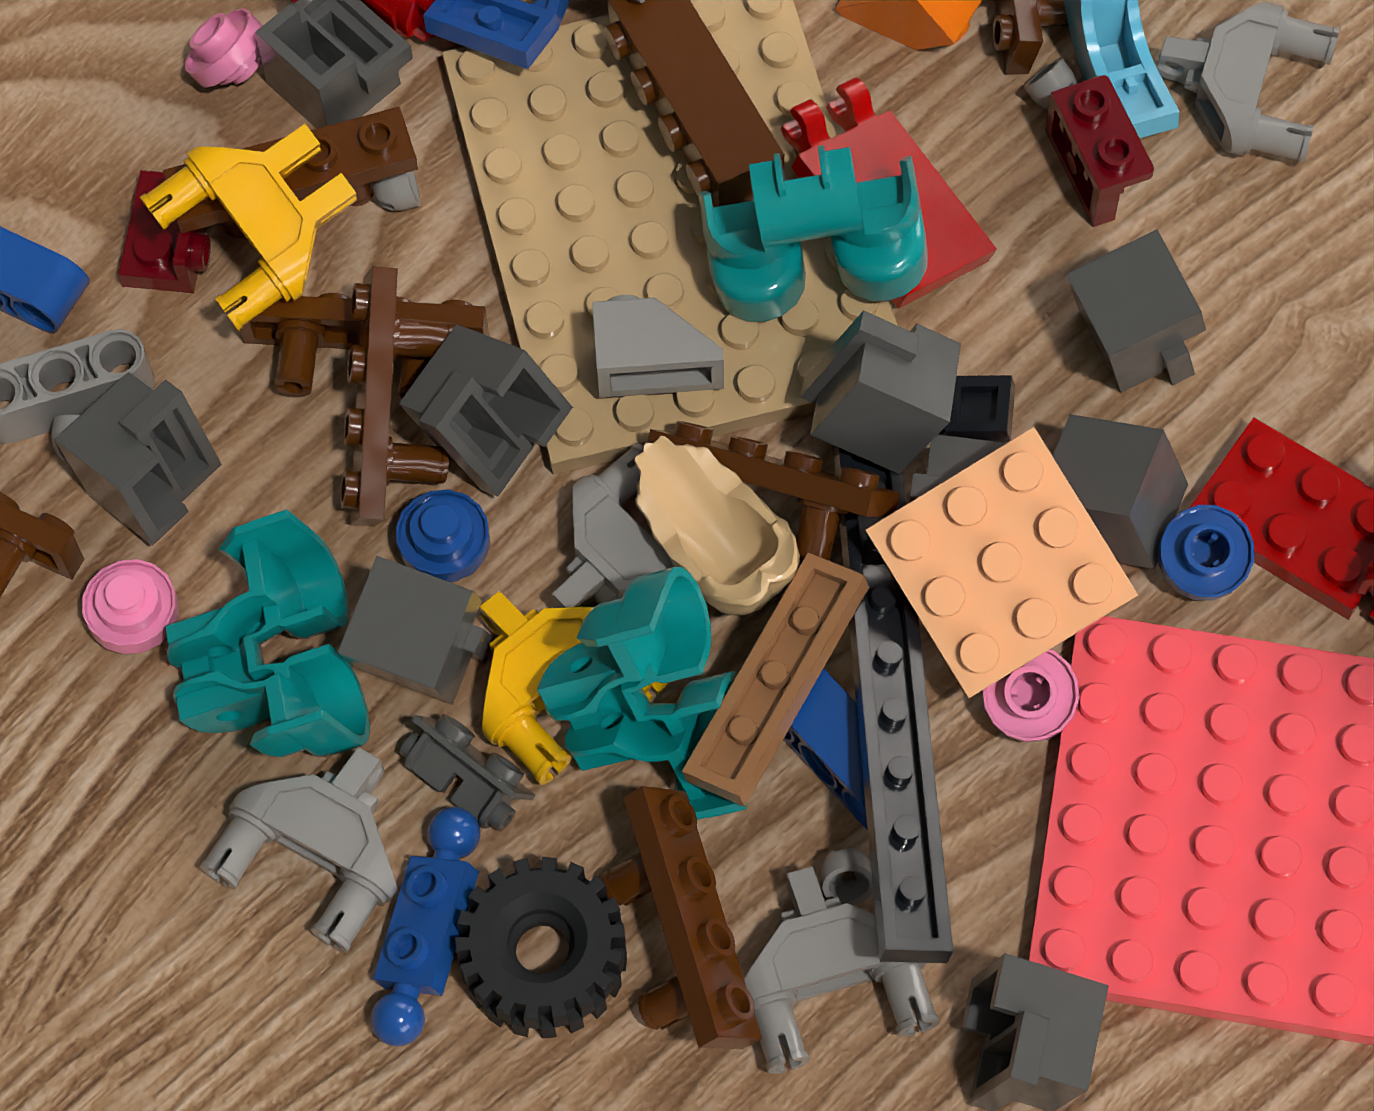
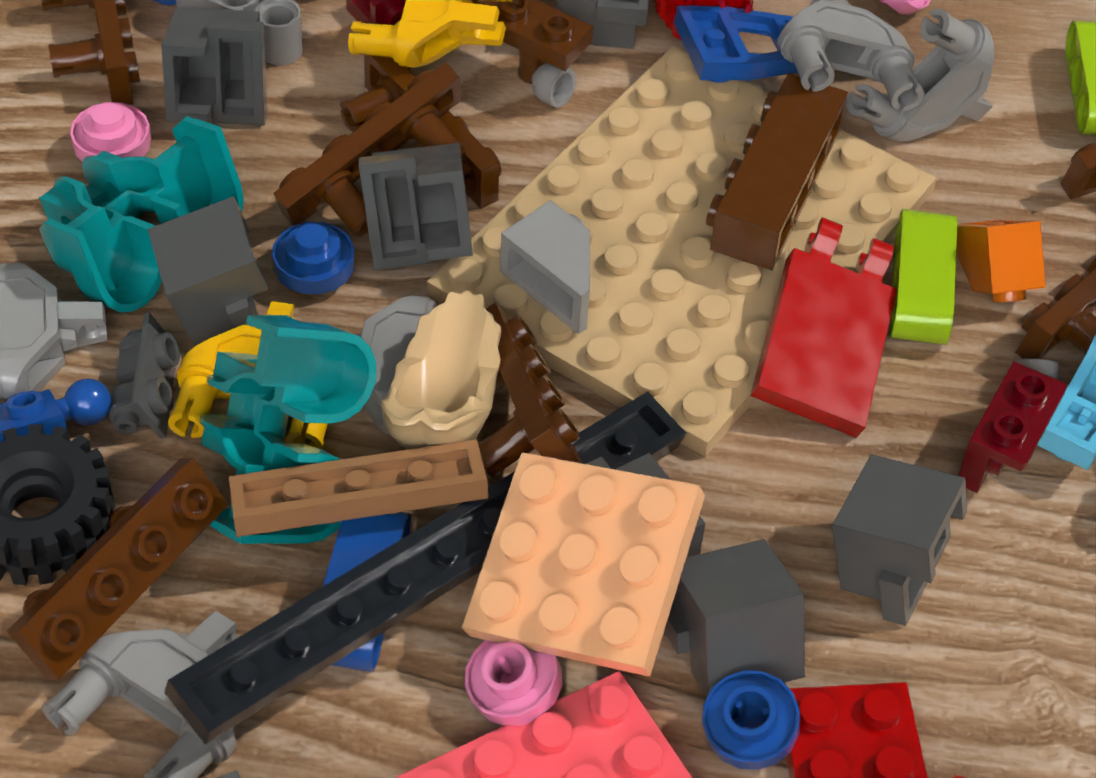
camera: 45 degrees right, 15 degrees down
(758, 246) = (692, 275): teal piece -> none
(860, 46) = (924, 277): none -> lime beam
(883, 390) = (655, 399): dark grey plate -> none
(982, 408) = (728, 491): black plate -> none

